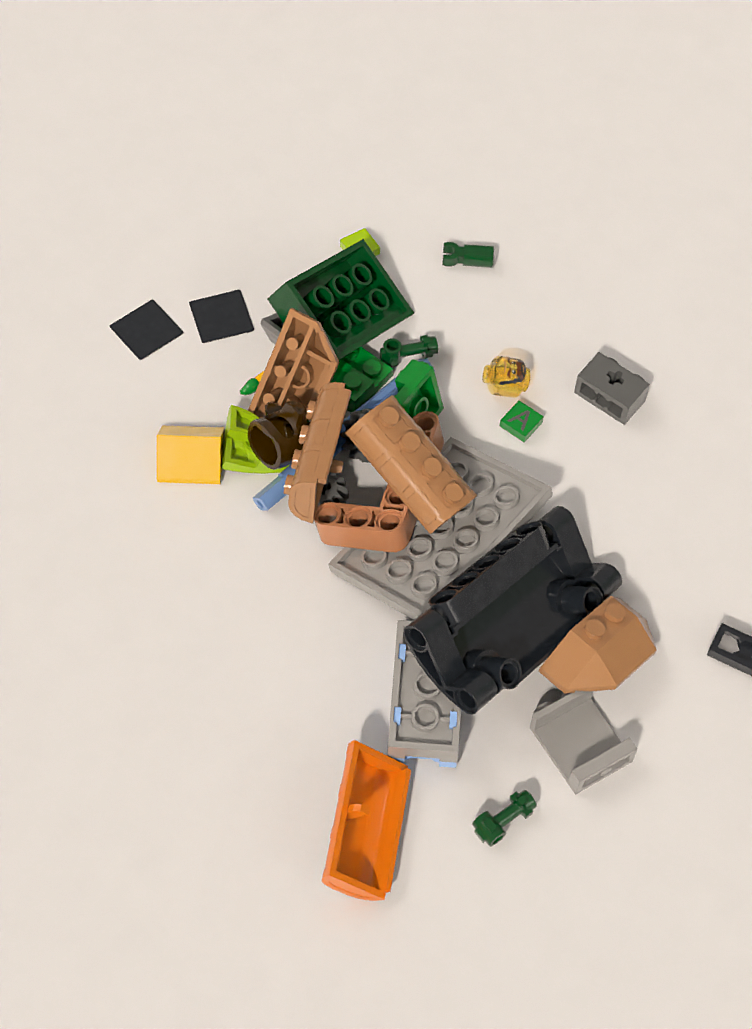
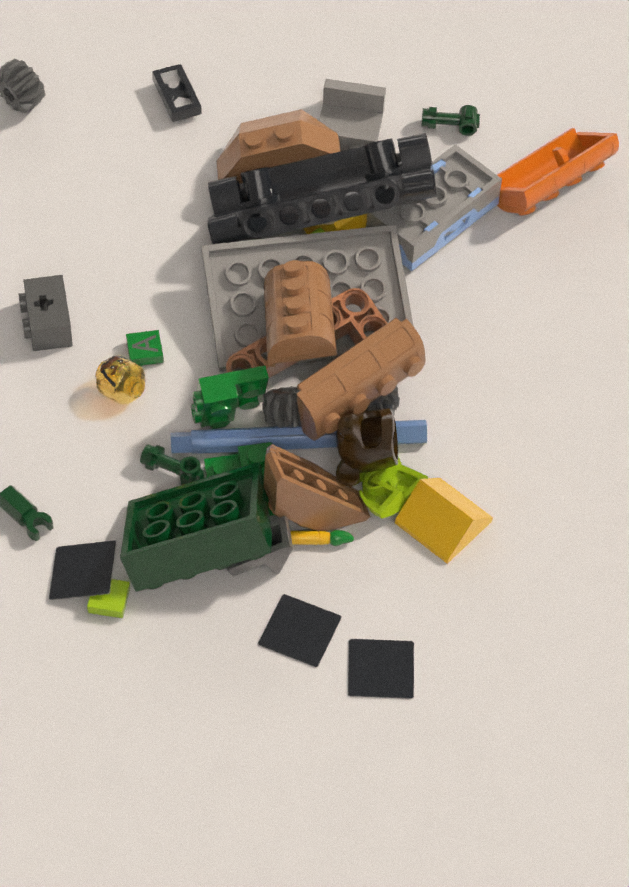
camera: 140 degrees left, 5 degrees down
(393, 248) = (82, 570): none -> black sticker

